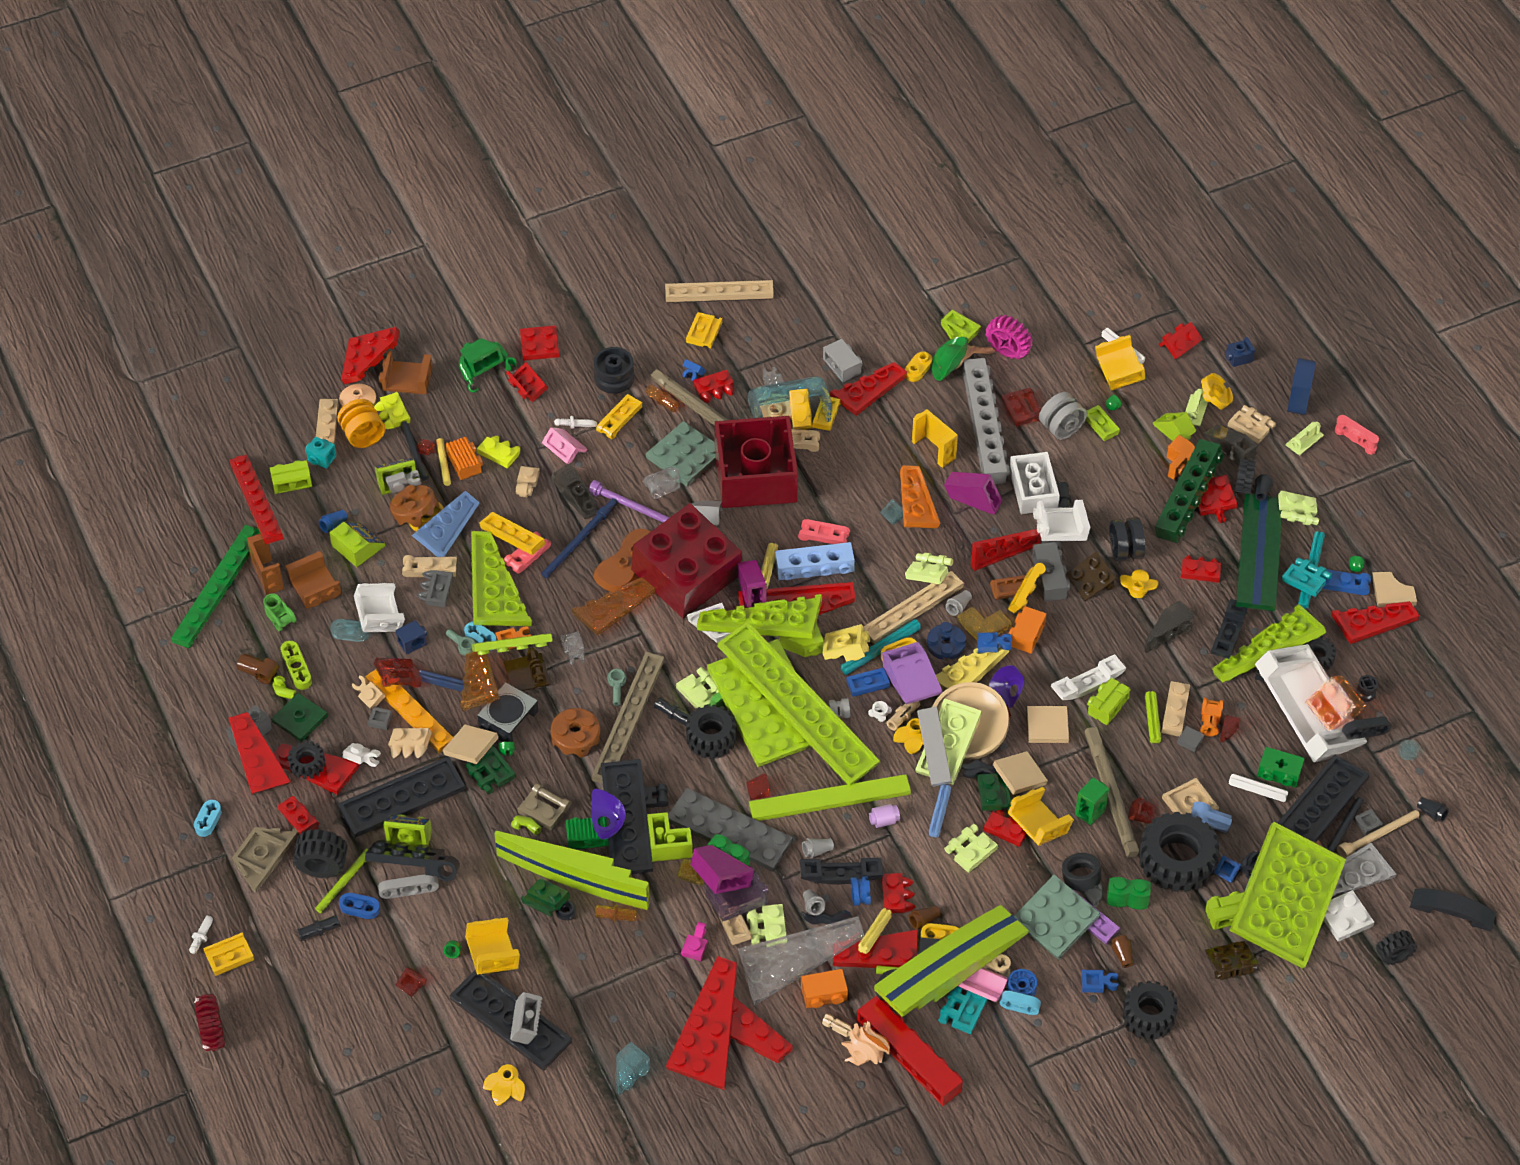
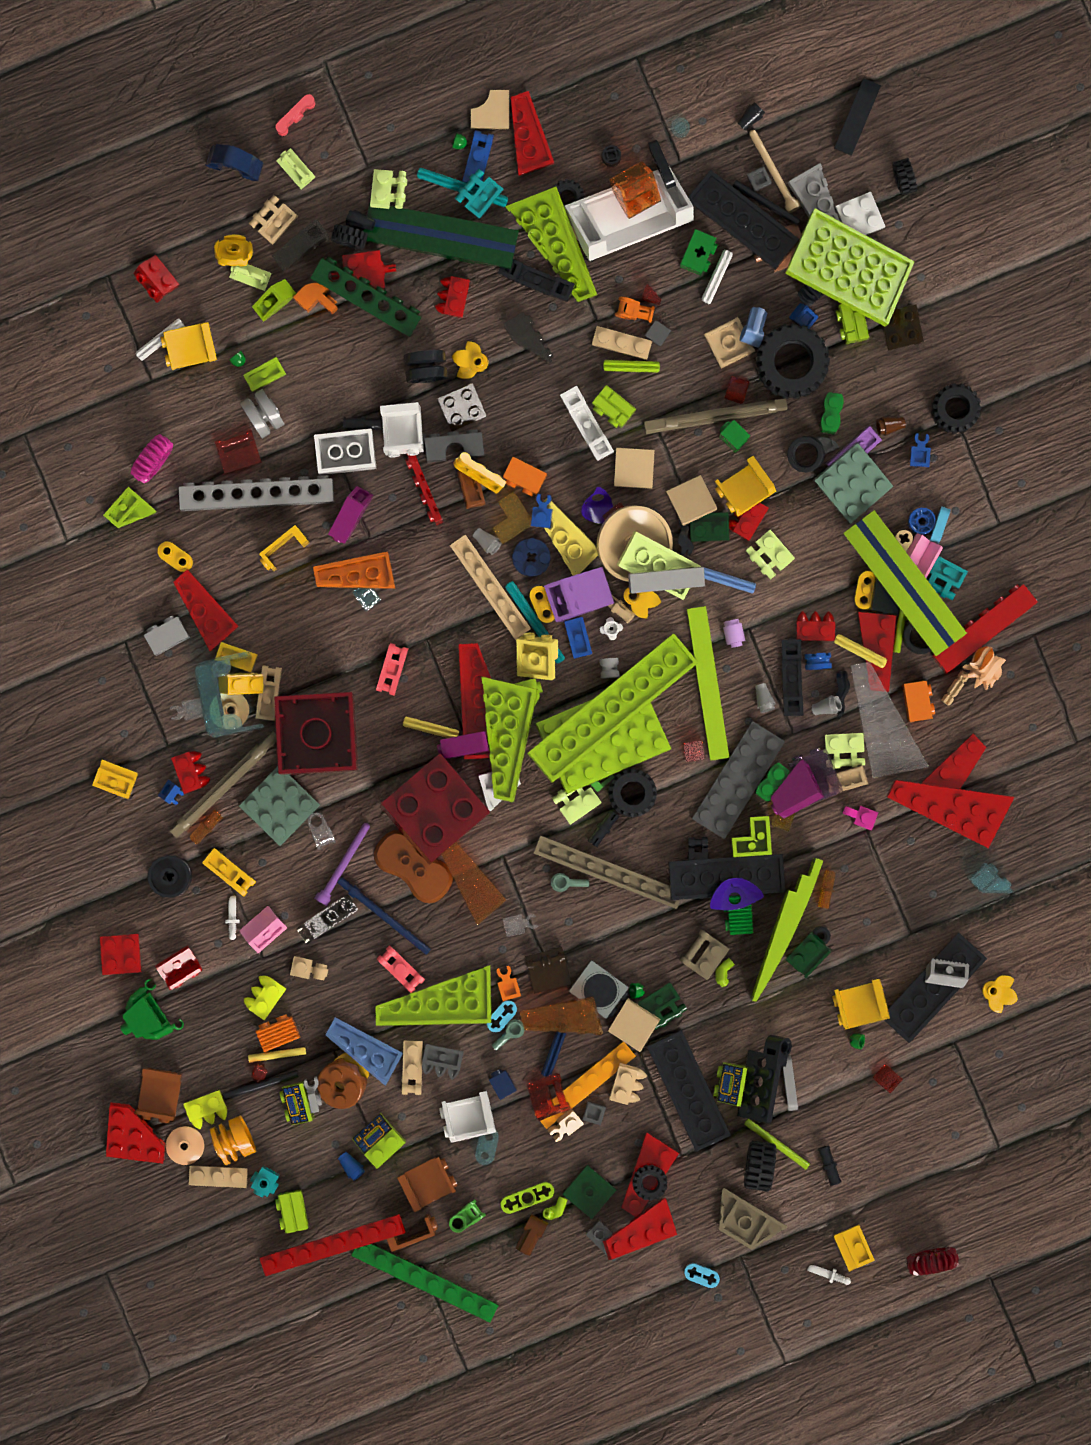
camera: 85 degrees left, 35 degrees up
(298, 815) = (713, 1188): red bracket -> none
(360, 754) = (637, 1133): white plate -> none
(360, 905) = (808, 1128): blue plate -> none
(504, 644) = (522, 985): lime plate -> none
(512, 533) = (382, 984): yellow plate -> none
(575, 742) = (610, 923): dark orange plate -> none
(710, 510) = (358, 786): light grey brick -> none
(719, 291) = (60, 761): tan plate -> none
(814, 561) = (422, 651): light blue brick -> none
(924, 916) = (845, 605): reddish brown cone -> none
(929, 572) = (449, 570): yellowish green plate -> none
(952, 355) = (169, 518): green hat -> none
(1240, 352) = (175, 211): dark blue brick -> none

